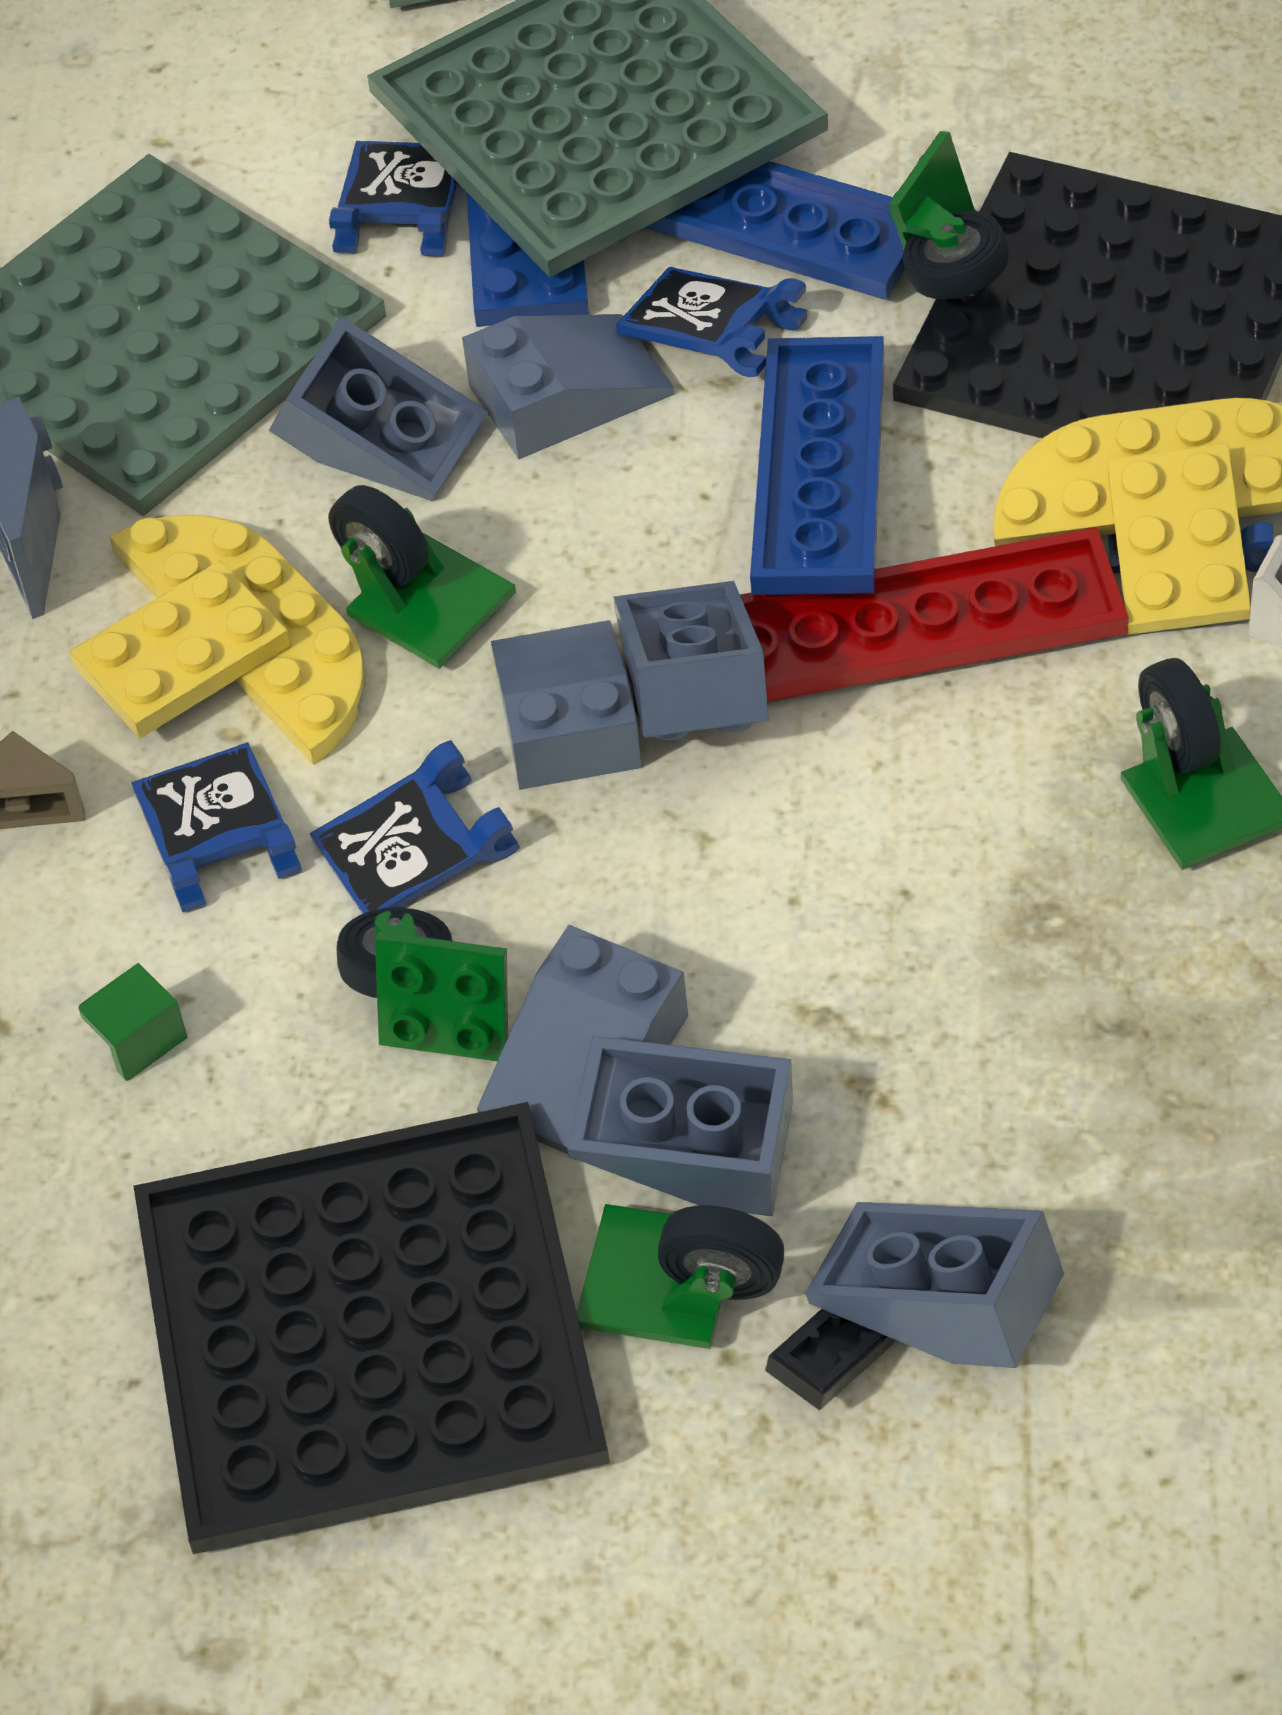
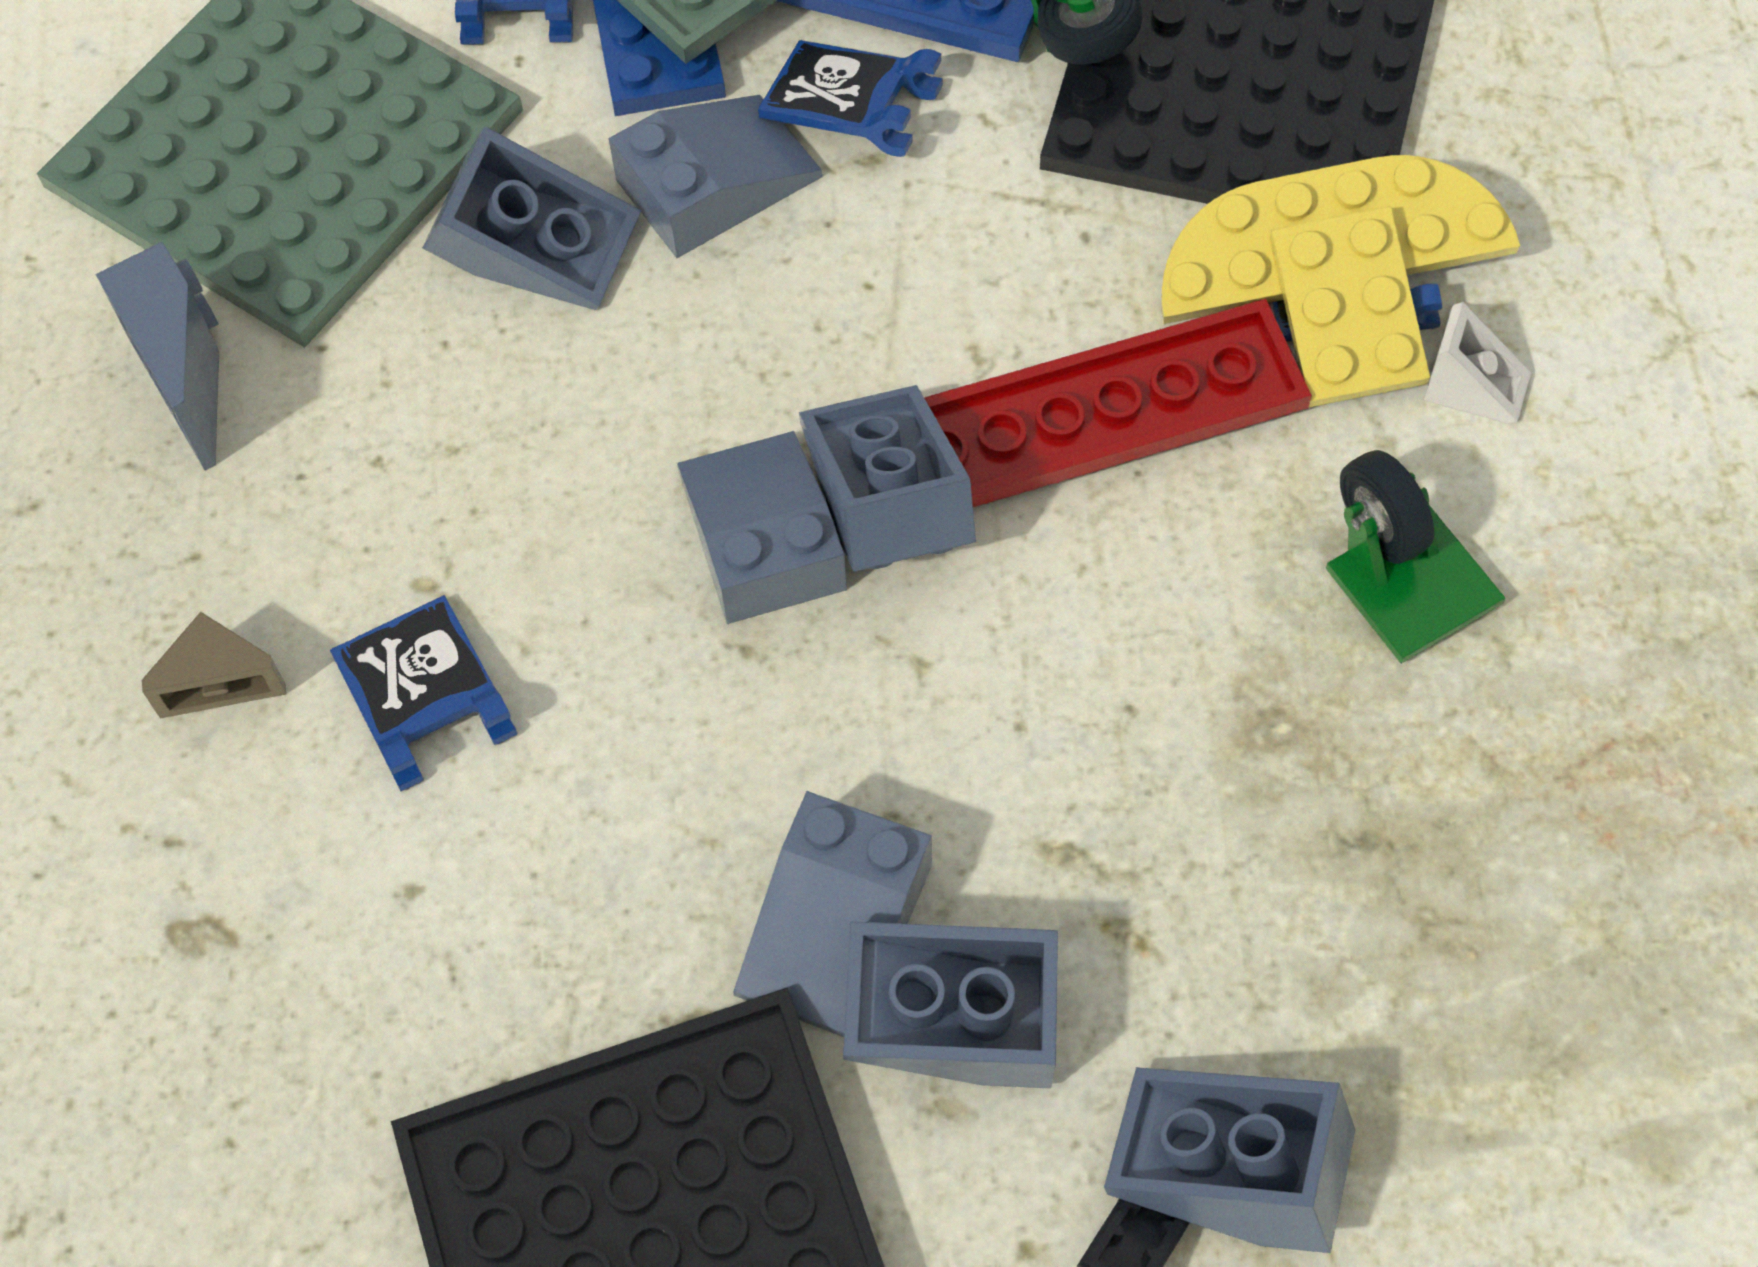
camera: 10 degrees left, 10 degrees up
(135, 1020) = (366, 928): green panel -> none
(223, 616) = (403, 462): light yellow plate -> none
(410, 582) = (590, 406): green plate -> none
(411, 836) = (622, 692): flag -> none
(426, 985) = (666, 876): green plate -> none
(670, 1272) = (962, 1168): green plate -> none
(818, 466) = (983, 254): blue plate -> none

